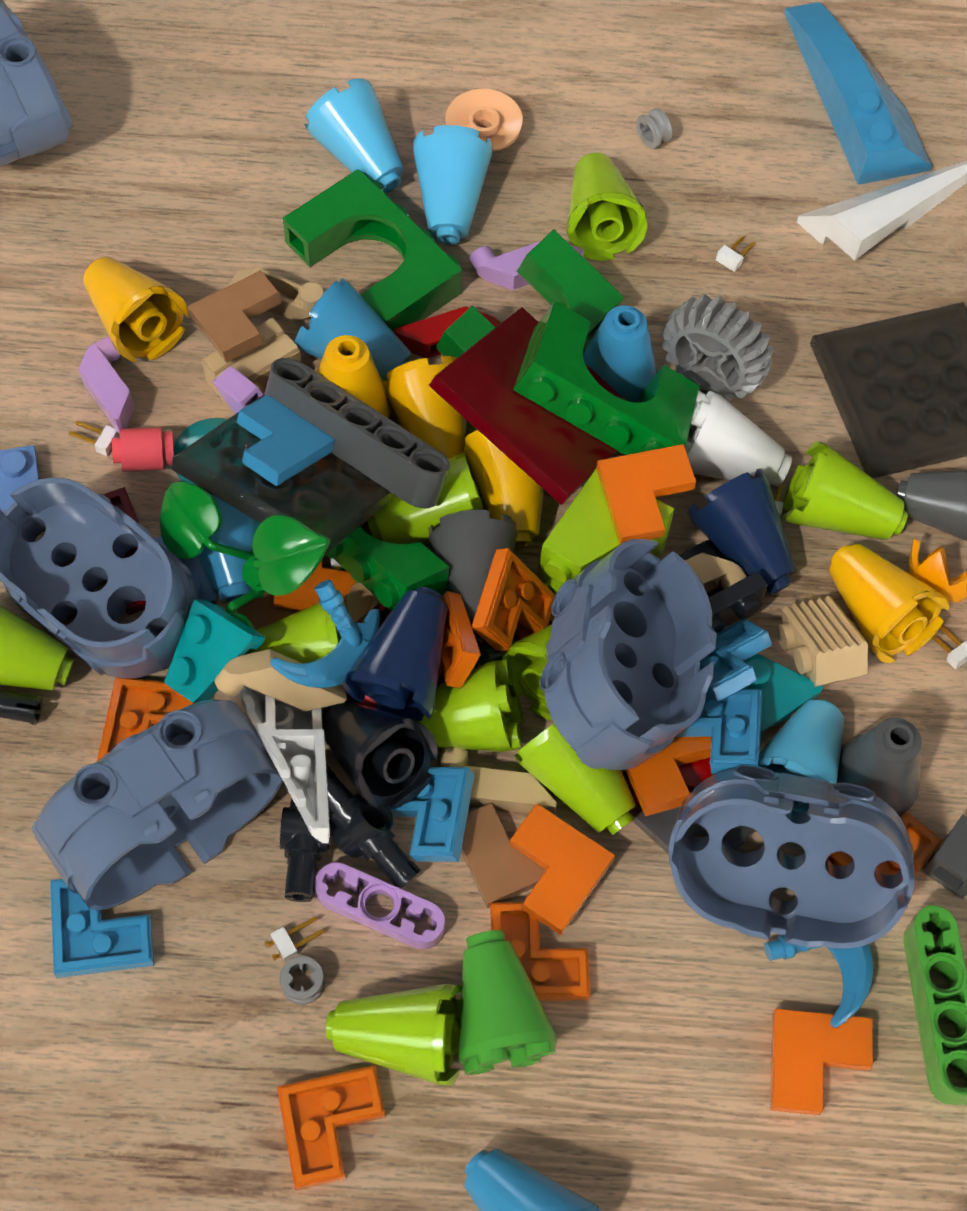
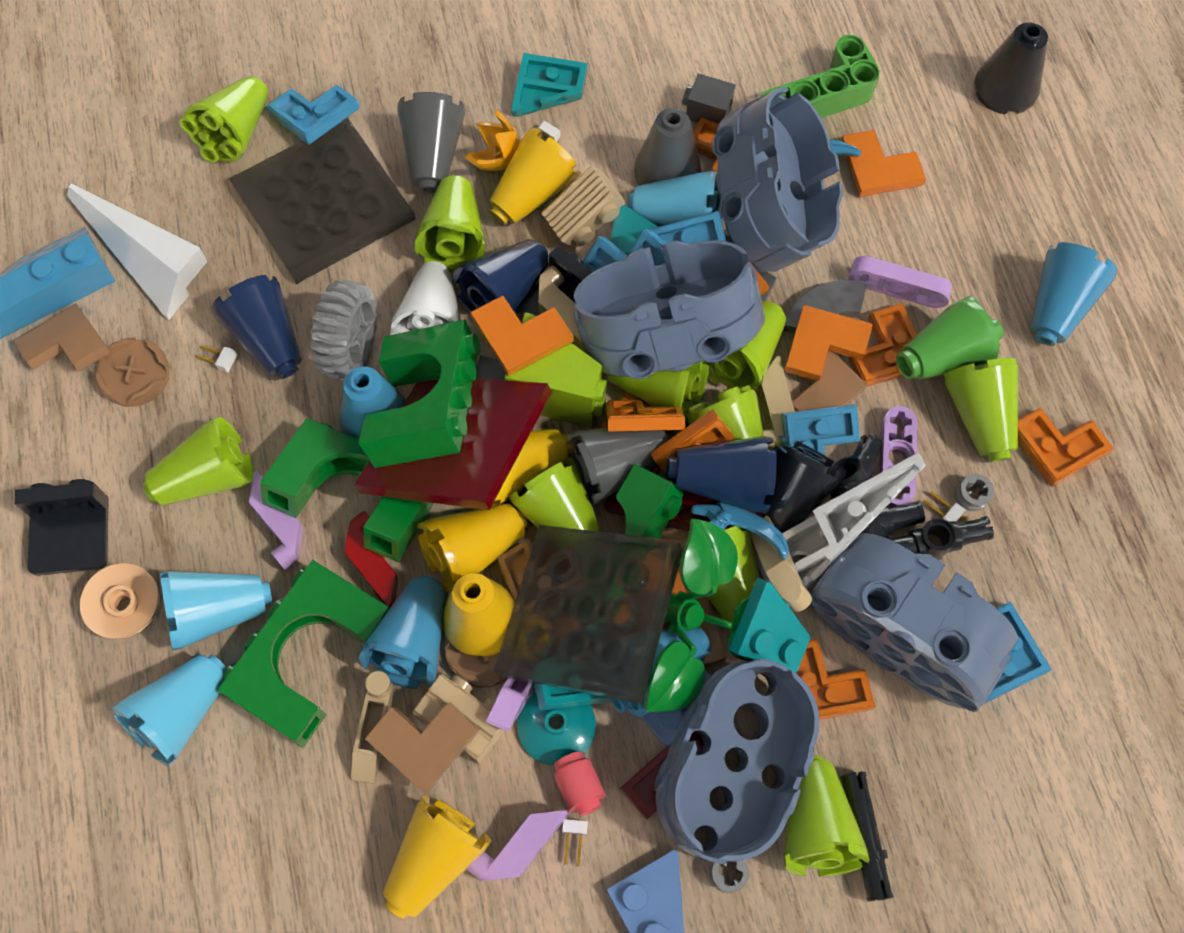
camera: 105 degrees left, 5 degrees up
(257, 921) = (950, 533): none -> black pin
(286, 440) = (568, 616): dark azure tile -> none
(361, 434) = (538, 592): dark grey beam -> none
(575, 95) = (65, 526): none -> black bracket
(618, 1003) = (901, 282): none -> lavender beam
(619, 907) = (838, 297): none -> flat silver tile
(654, 128) = (94, 450): light grey bush -> none
(739, 178) = (132, 372): none -> medium nougat tile
(758, 281) = (261, 324): none -> dark blue cone
(794, 128) = (64, 332): none -> medium nougat tile

